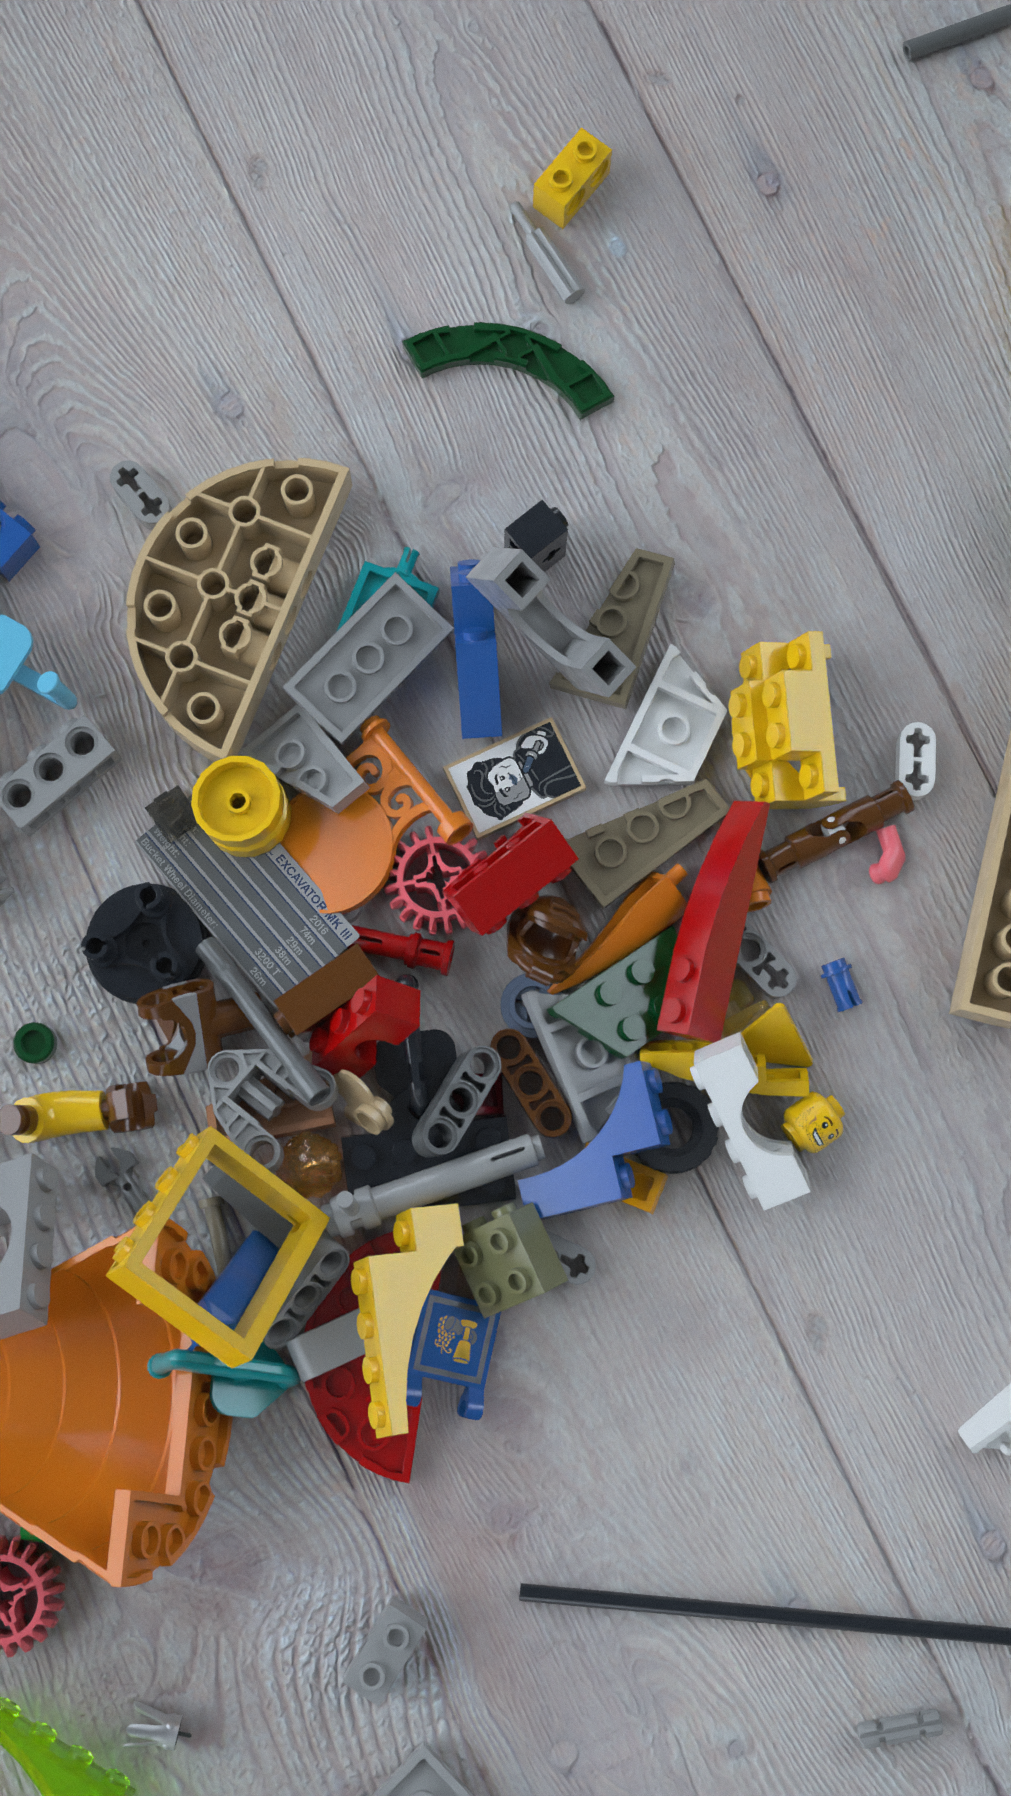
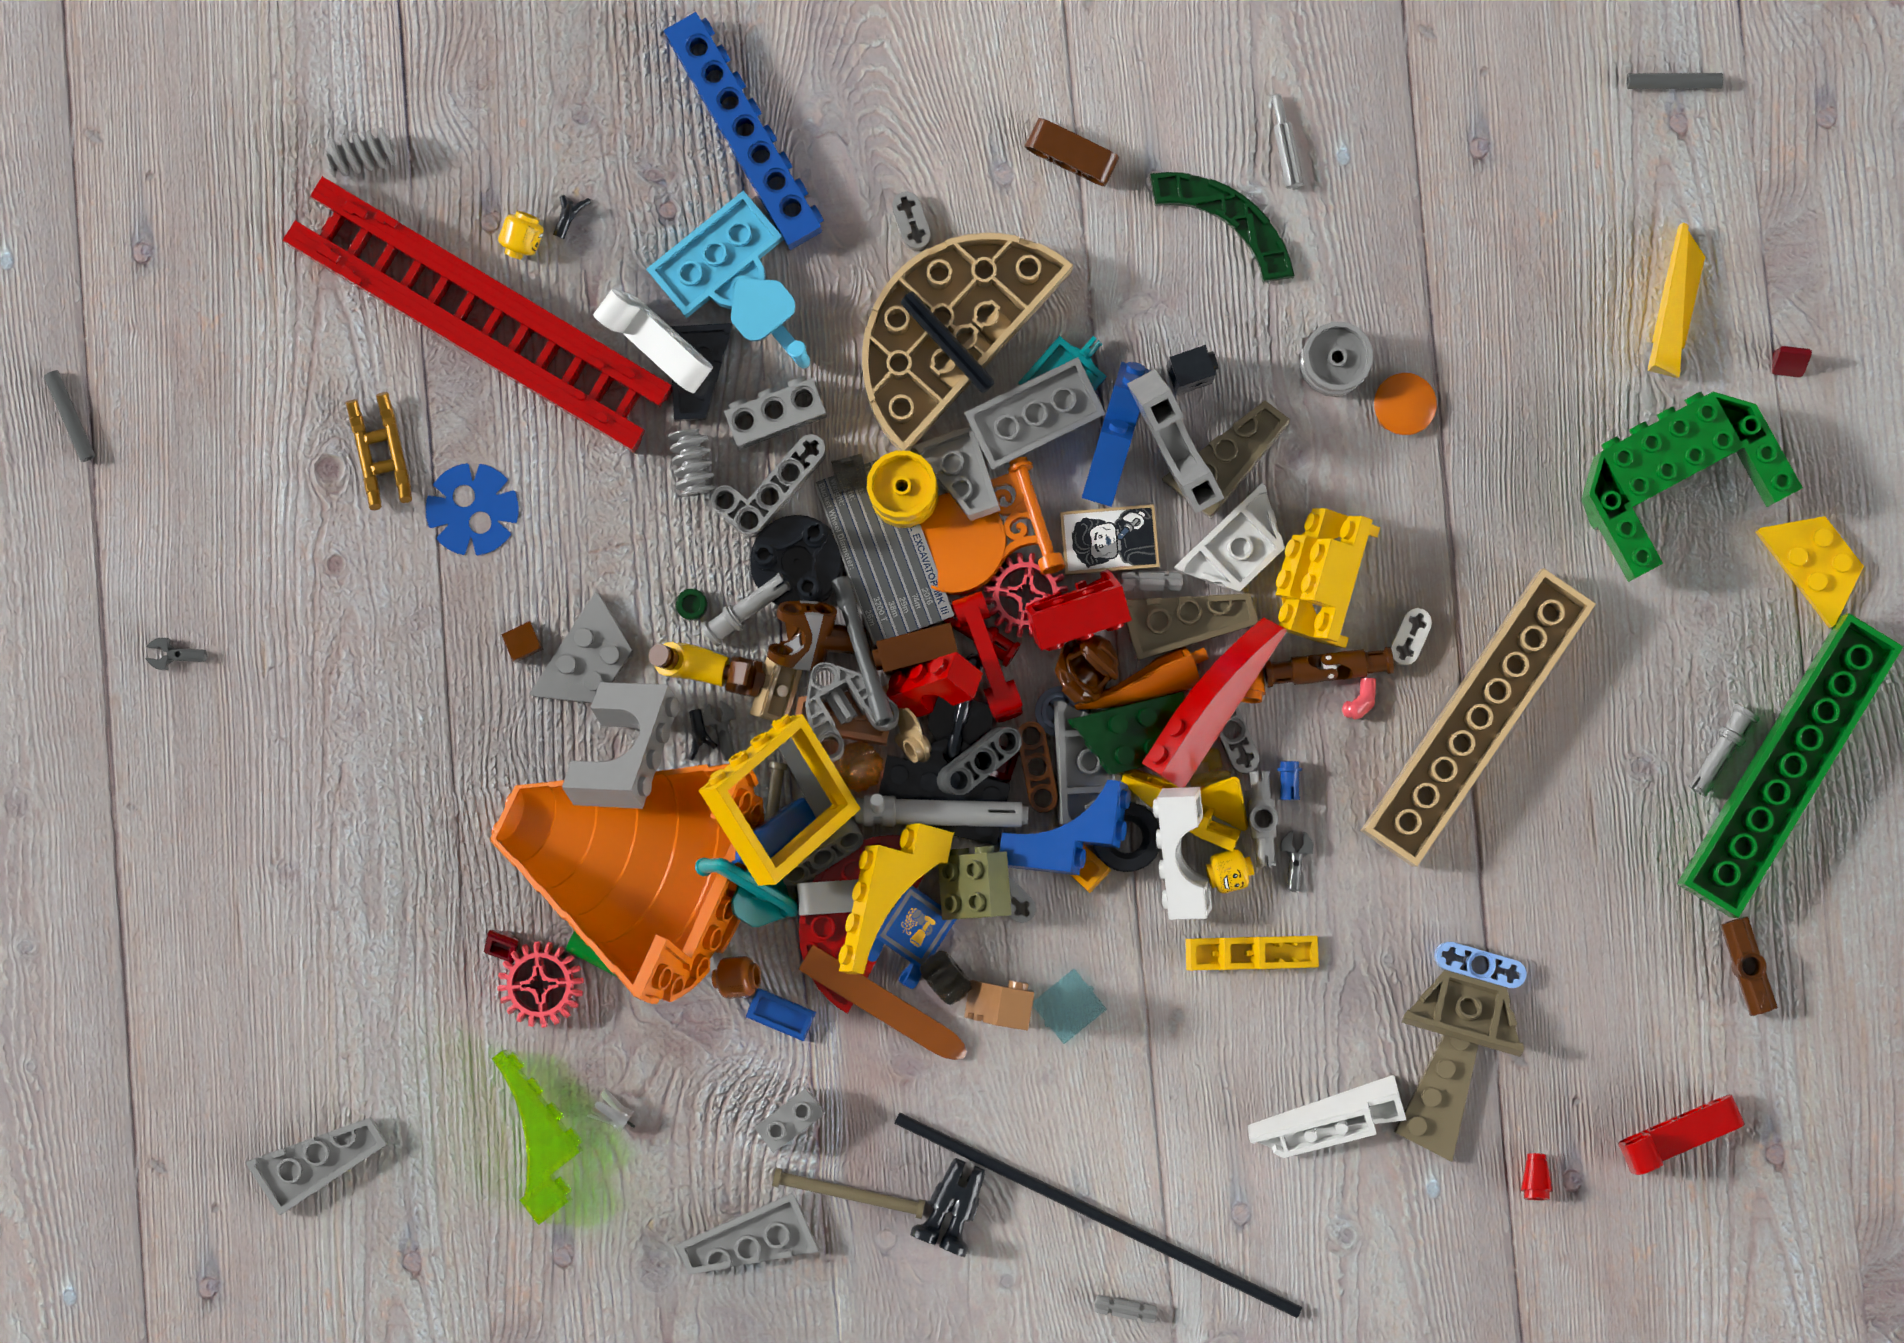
camera: 25 degrees right, 5 degrees up
(82, 857) = (773, 482): none -> light grey beam
(91, 1038) = (734, 616): none -> light grey pin
(99, 1198) = (699, 733): none -> black bar
(178, 1109) = (777, 693): none -> tan slope
(230, 609) = (947, 342): none -> black axle
(252, 1490) = (736, 977): none -> dark orange head
(301, 348) = (1071, 152): none -> reddish brown beam
(326, 1515) = (780, 1014): none -> blue tile
(451, 1455) = (883, 1005): none -> dark orange piece
(454, 1010) = (1002, 695): none -> red piece
(494, 1715) = (848, 1193): none -> dark tan bar
(515, 1390) = (945, 977): none -> clear smoke gear
(572, 178) = (1327, 93): yellow brick -> none
(585, 807) = (1152, 581): none -> light grey axle
(598, 1398) = (1000, 1004): none -> medium nougat wedge
(631, 1673) = (954, 1199): none -> black piece
(680, 1365) = (1068, 1006): none -> clear light blue piece
(701, 468) = (1332, 377): none -> light grey wheel
(800, 495) = (1405, 404): none -> orange dish
(837, 1064) = (1262, 801): none -> light grey pin
(879, 1213) = (1252, 953): none -> yellow slope
(885, 1075) = (1295, 860): none -> dark grey bar

